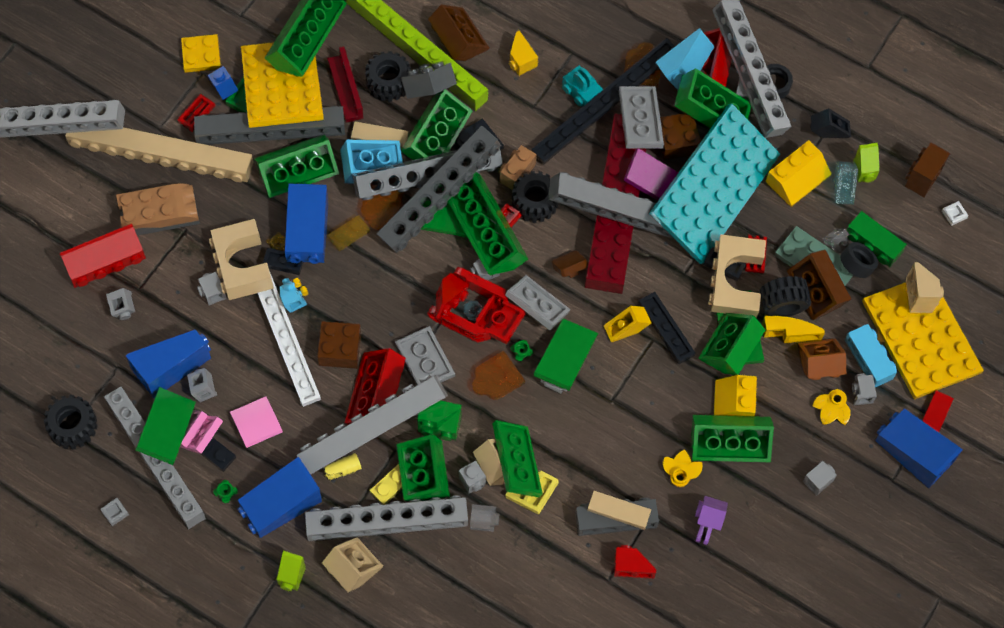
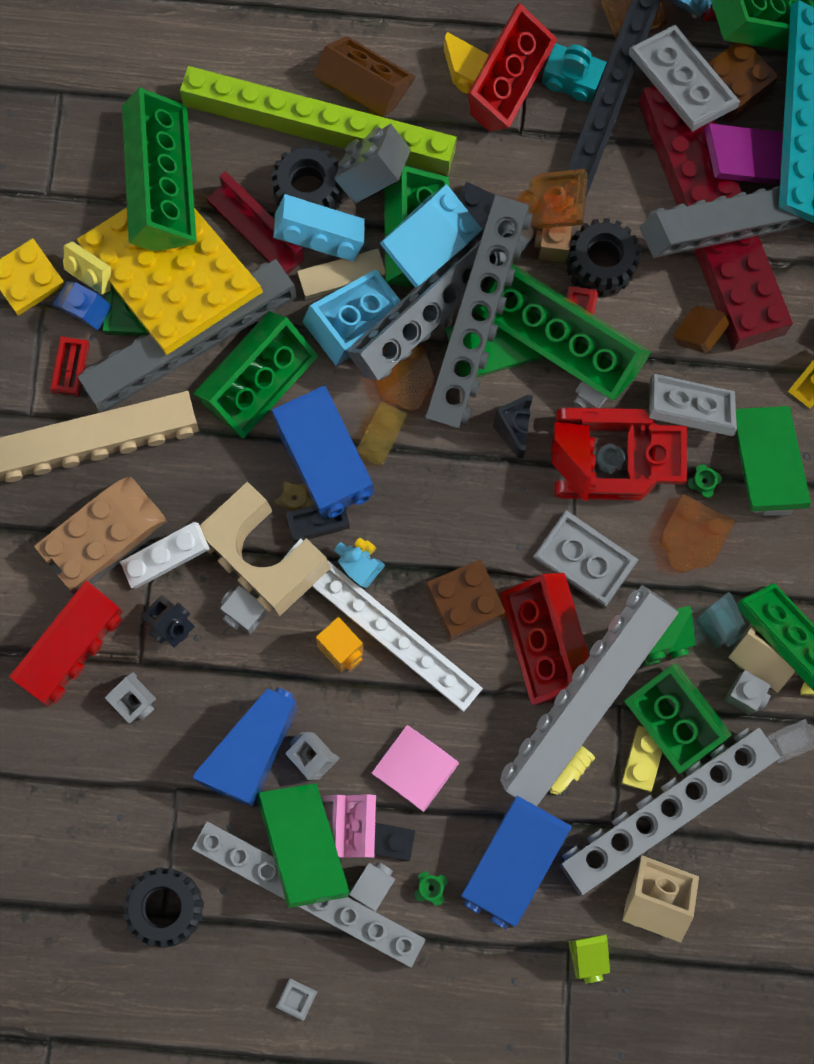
camera: 30 degrees left, 10 degrees up
(166, 272) = (168, 621): none -> black brick
(185, 236) = (164, 555): none -> white plate
(192, 470) = (373, 885): none -> light grey brick
(236, 63) = (87, 268): none -> light yellow plate
(252, 331) = (340, 645): none -> light orange brick
(378, 101) = (319, 228): none -> medium azure brick
(428, 262) = (512, 424): none -> black slope
(436, 134) = (430, 235): none -> medium azure slope
(480, 427) = (722, 621): none -> clear light blue slope
(522, 148) = (556, 198): none -> clear orange plate
(541, 66) = (510, 70): none -> red slope

